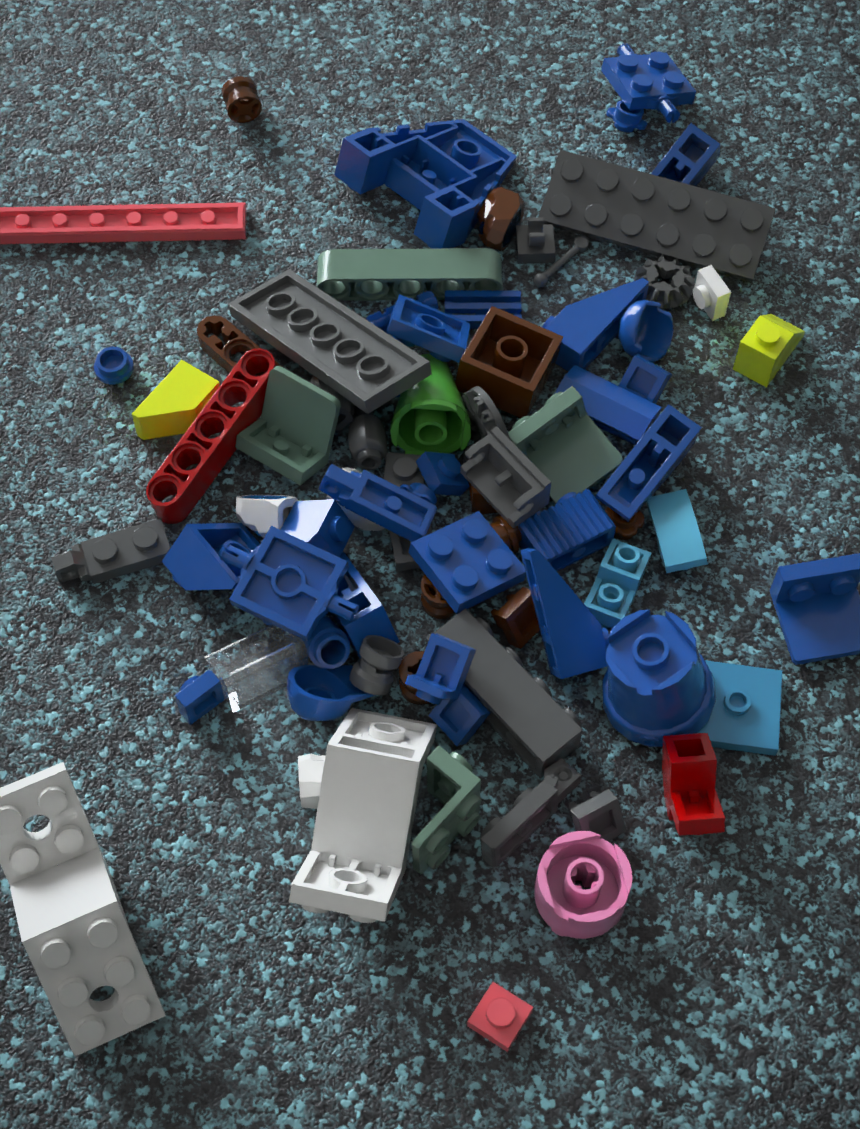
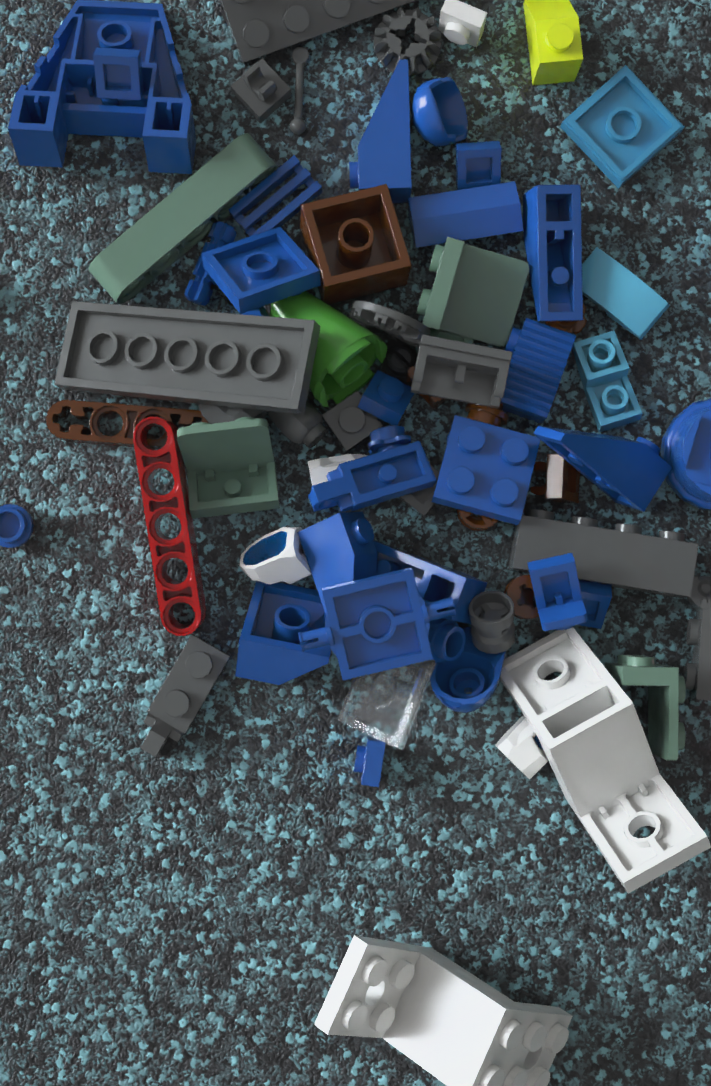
camera: 40 degrees left, 25 degrees up
(174, 402) = (106, 516): neon yellow slope -> none
(445, 161) = (118, 73): none -> blue plate
(499, 218) = (211, 91): reddish brown rock -> none
(774, 432) = (622, 126): none -> dark azure plate

